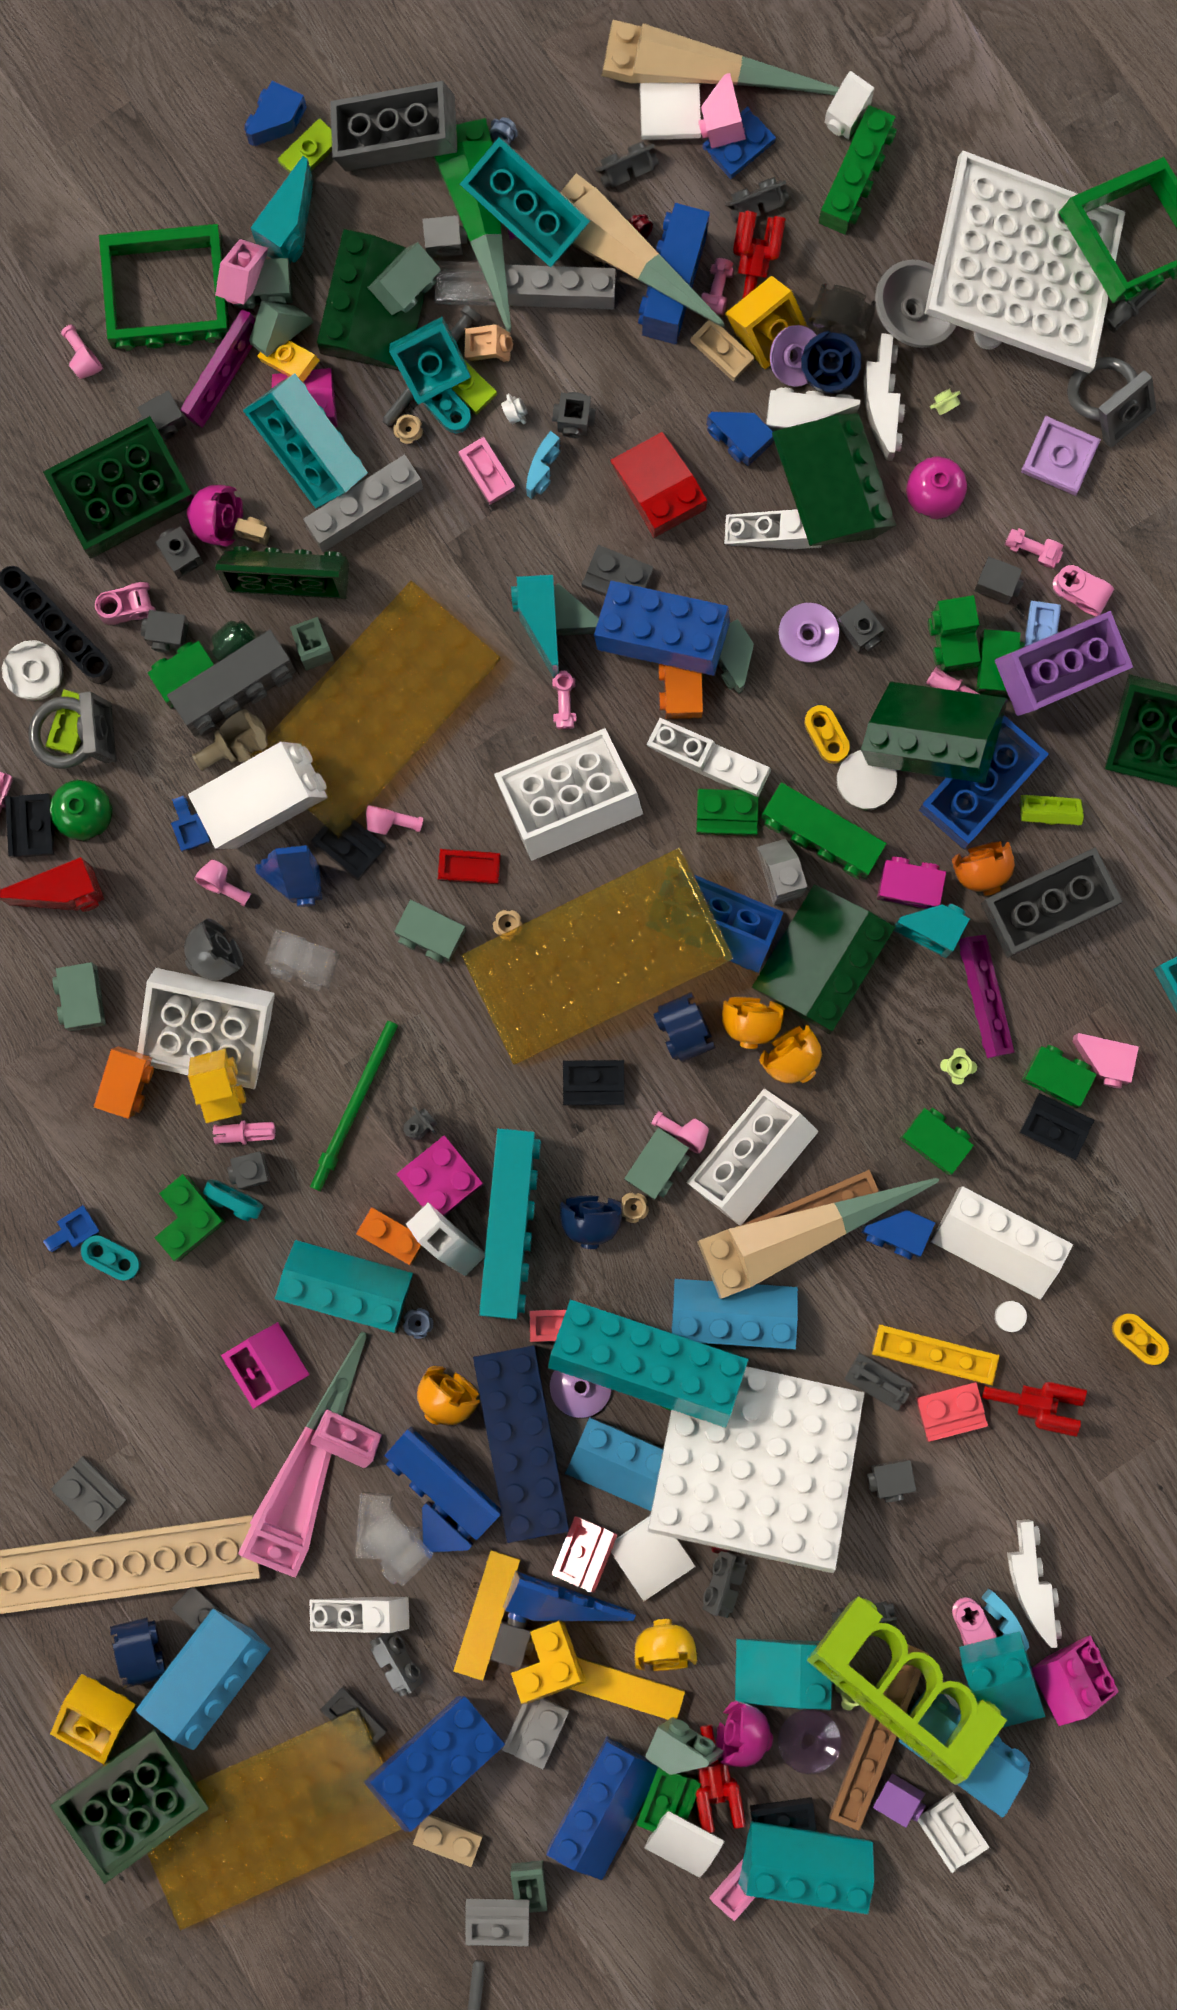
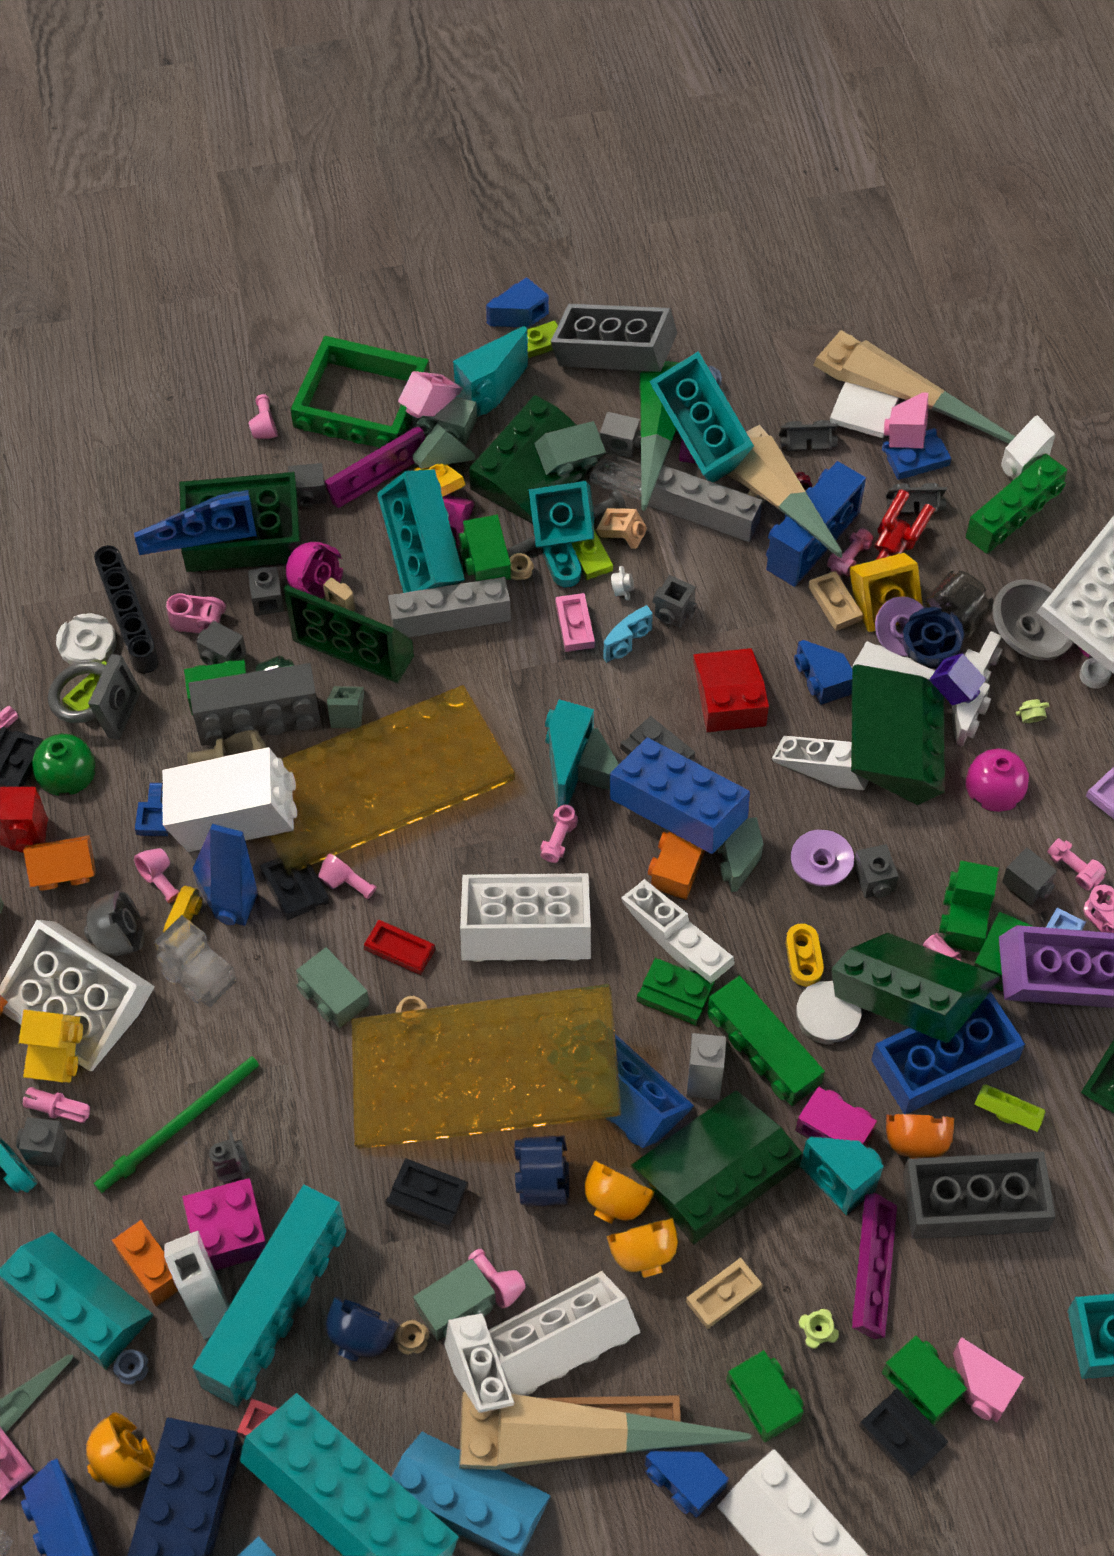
camera: 20 degrees right, 25 degrees down
(102, 508) = (209, 522): none -> blue wedge
(131, 910) = (60, 862): none -> orange brick
(265, 903) = (186, 904): none -> yellow plate
(374, 434) = (484, 549): none -> green brick
(574, 1403) = (251, 1521): lavender dish -> none
(702, 1215) = (477, 1363): none -> white slope
(872, 407) = (958, 679): none -> dark purple brick
(872, 1068) = (724, 1293): none -> tan plate

